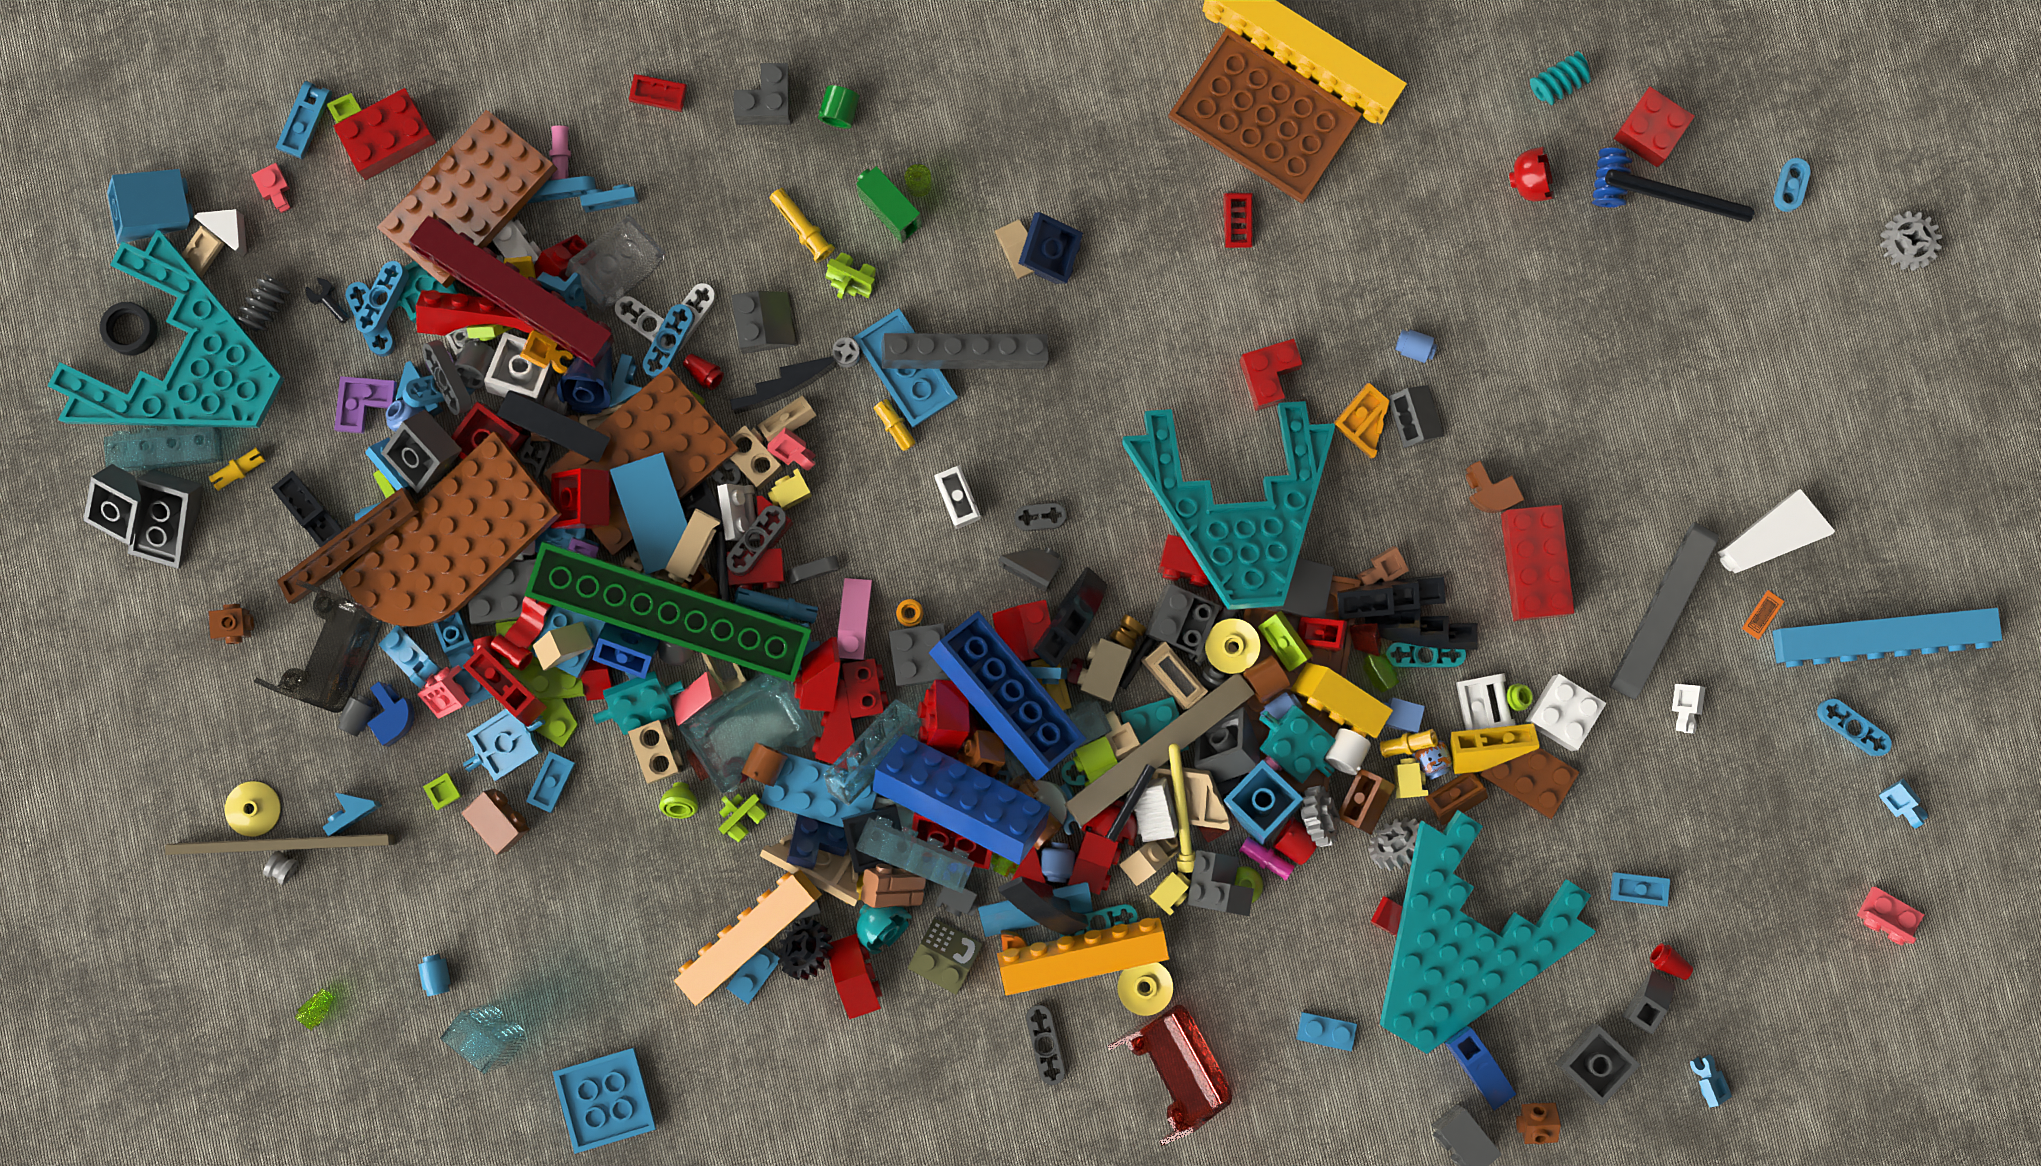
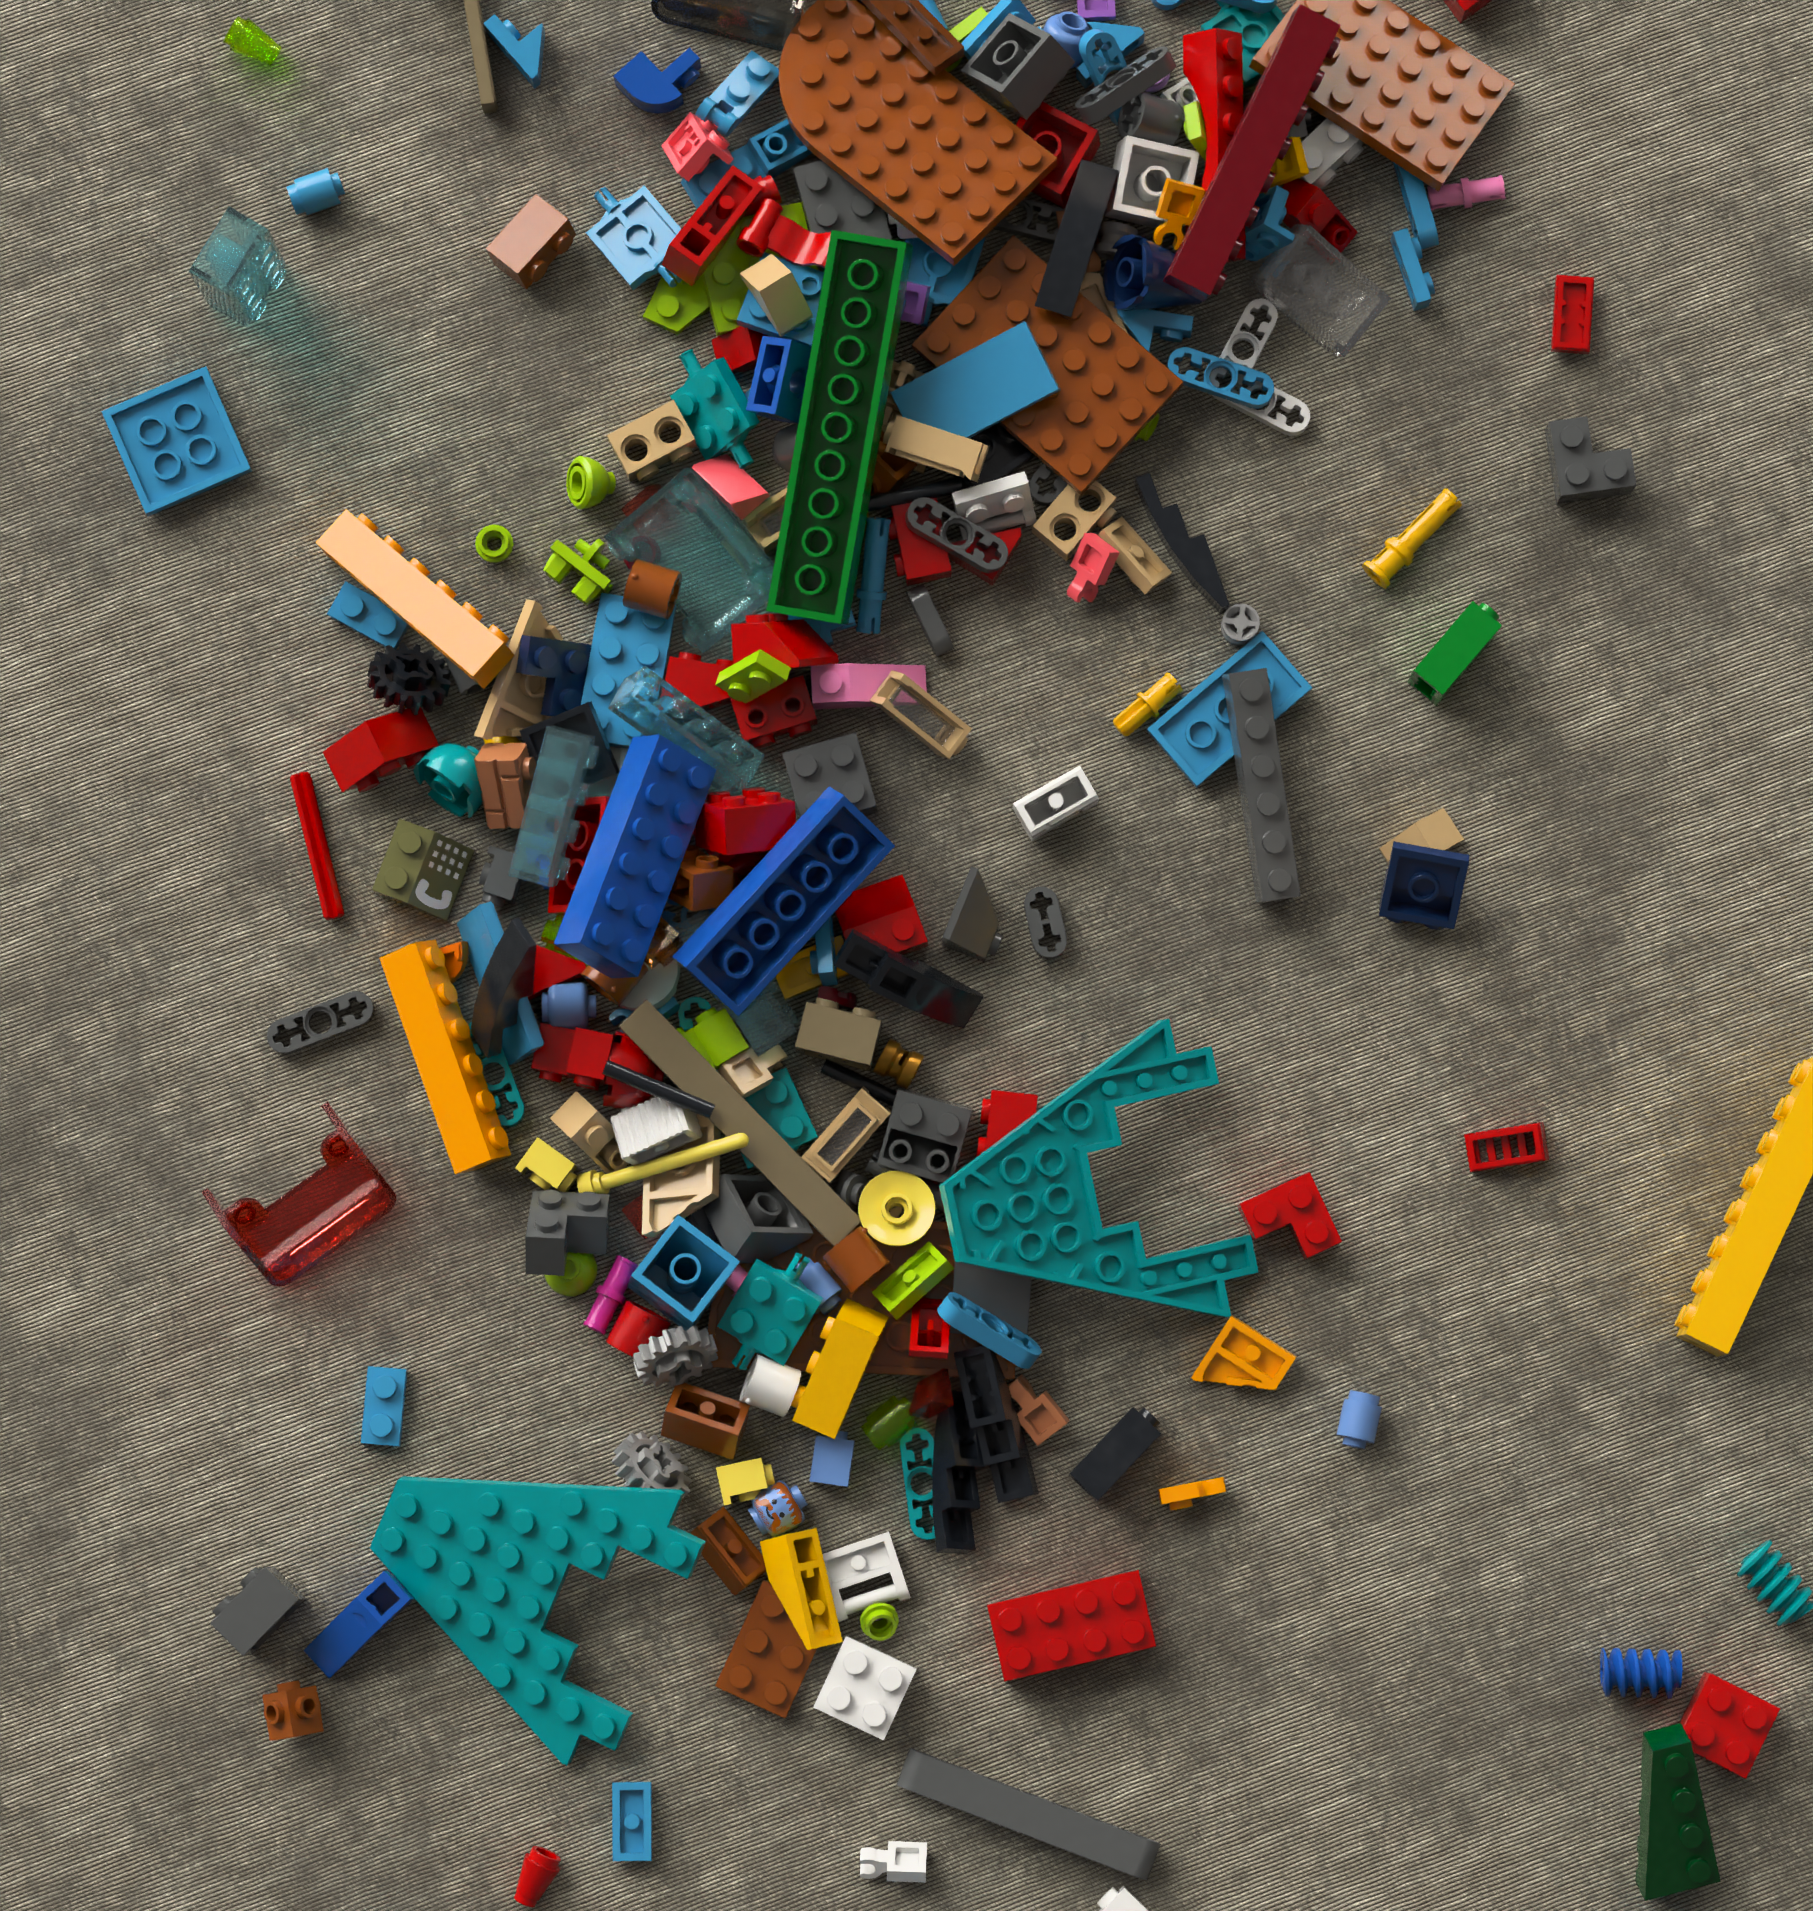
camera: 90 degrees right, 0 degrees up
(356, 715) = (651, 35): dark grey brick -> none
(442, 791) = (563, 165): lime plate -> none
(550, 782) = (593, 307): dark azure plate -> none
(581, 498) = (981, 290): red slope -> none
(704, 876) = (488, 533): none -> lime plate
(705, 372) = (1186, 433): red cone -> none
(763, 321) = (1268, 504): dark grey slope -> none
(789, 491) = (1034, 573): light yellow brick -> none
(839, 107) = (1587, 566): green piece -> none
(840, 697) = (752, 676): none -> lime plate
(848, 279) = (1341, 614): lime hips -> none
(881, 583) = (921, 715): none -> tan window
(903, 606) = (879, 752): light orange plate -> none
(916, 1031) = (317, 845): none -> red axle
(921, 187) = (1494, 701): clear neon green brick -> none
(1145, 1002) = (393, 1145): light yellow dish -> none
(1264, 115) = (1662, 1166): dark orange plate -> none
(1328, 591) = (989, 1330): none -> dark azure beam
(1387, 916) = (551, 1464): red slope -> none
(1408, 743) = (793, 1471): yellow pin -> none
(1415, 416) = (1258, 1431): dark grey brick -> none
(1422, 516) = (1116, 1452): none -> black slope
(1454, 475) = (1182, 1495): none -> light orange plate
(1491, 497) = (1156, 1553): dark orange brick -> none
(1532, 175) = (1629, 1558): red cylinder -> none
(1597, 1064) = (382, 1783): dark grey brick -> none
(1650, 1003) = (476, 1850): dark grey slope -> none
(1679, 195) = (1627, 1770): black axle -> none
(1720, 168) = (1674, 1826): none -> dark green wedge

